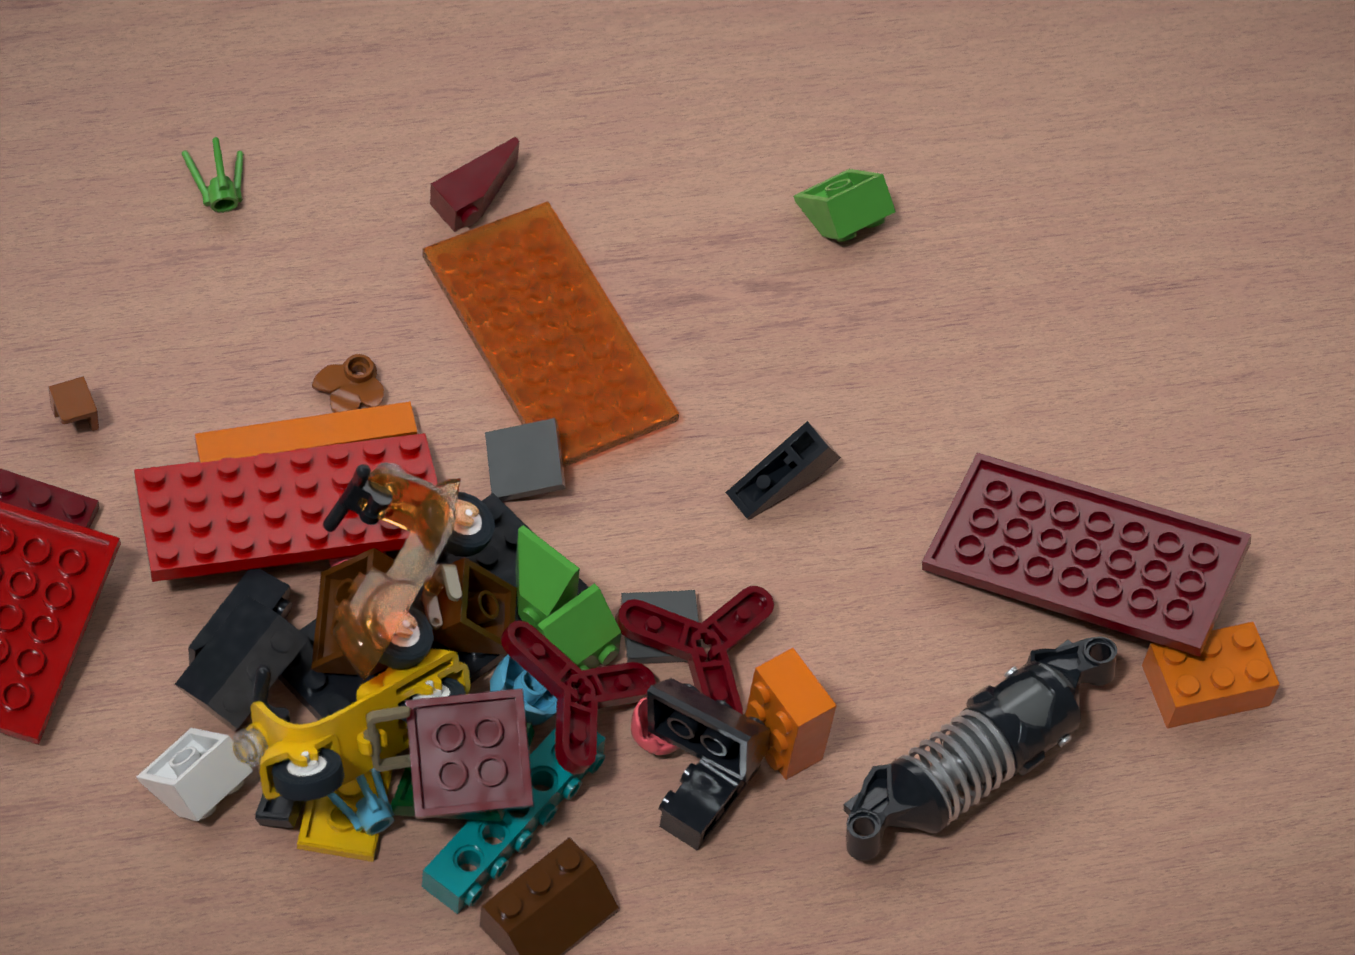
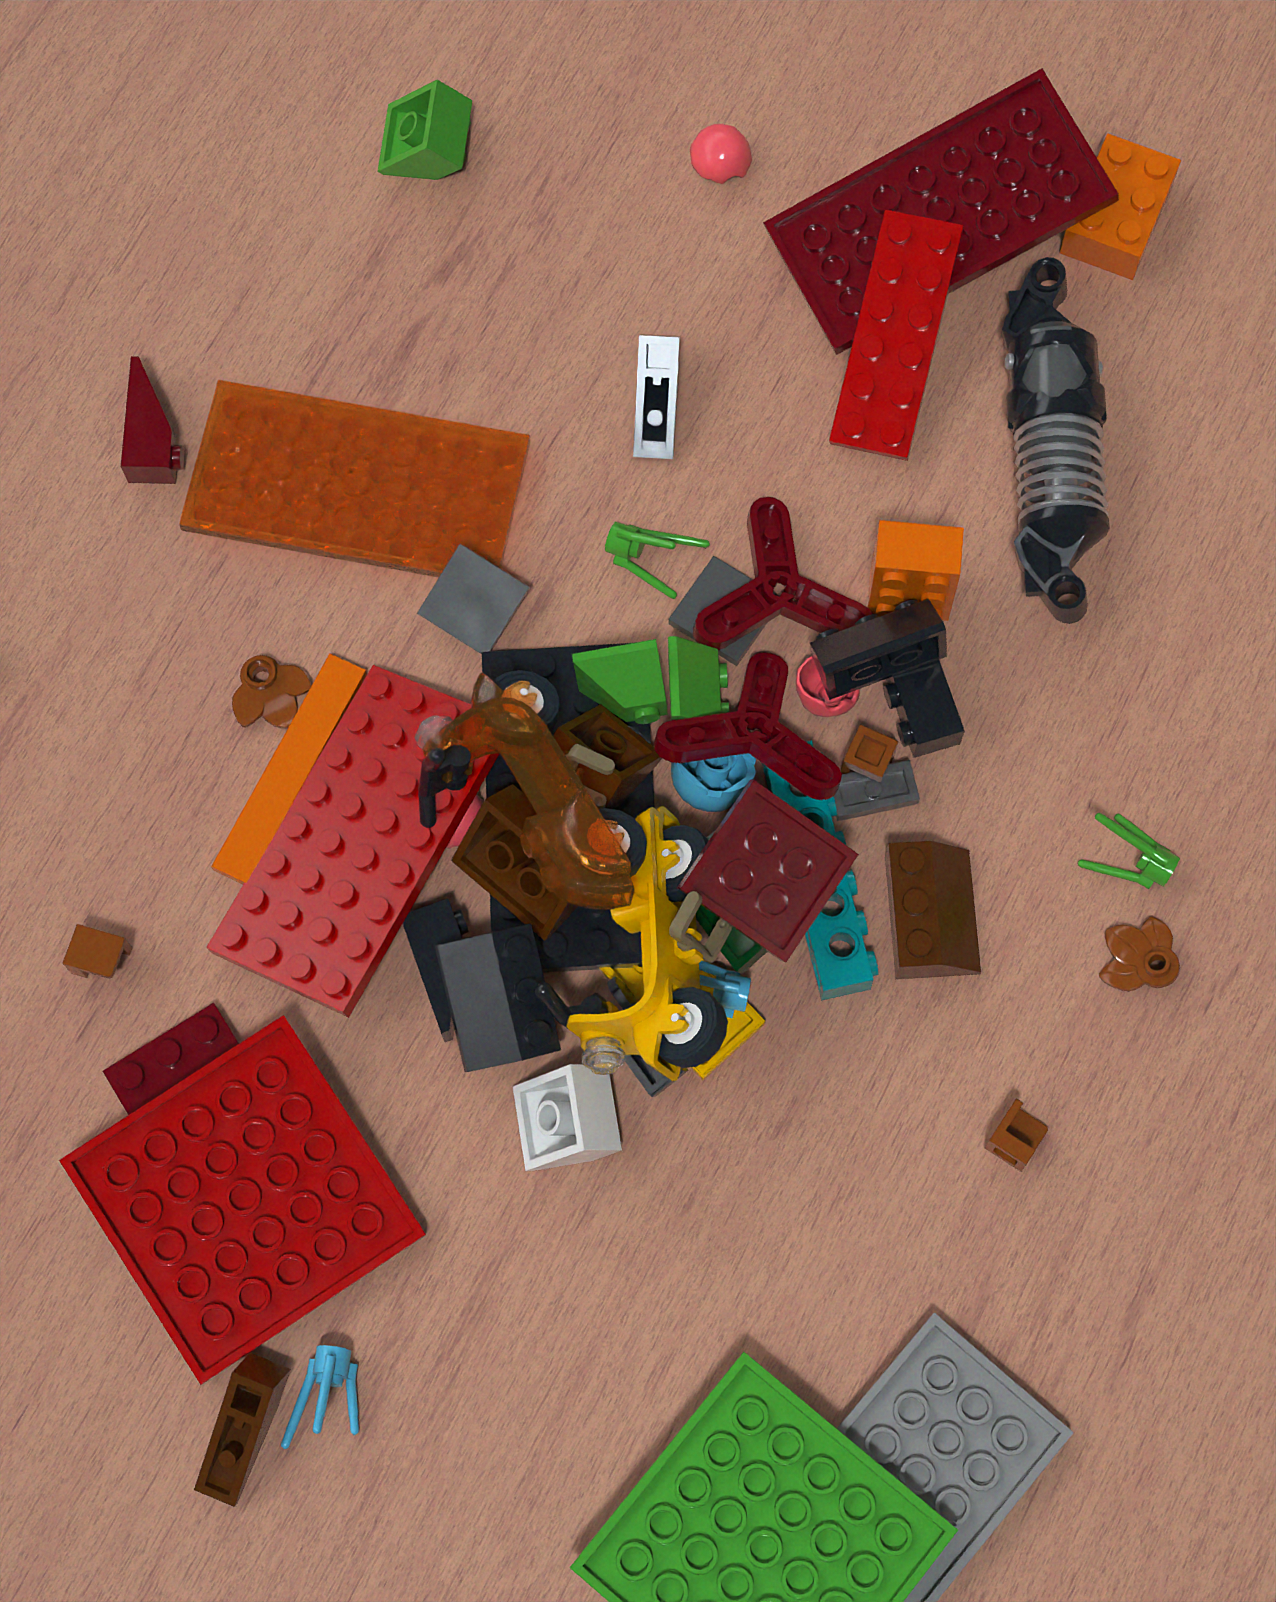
camera: 40 degrees left, 15 degrees up
(607, 811) = (865, 796): none -> flat silver plate
(629, 784) = (869, 753): none -> dark orange panel
(658, 531) = (629, 542): none -> bright green plant
(965, 589) = (896, 334): none -> red plate
(1006, 393) = (720, 153): none -> coral hair

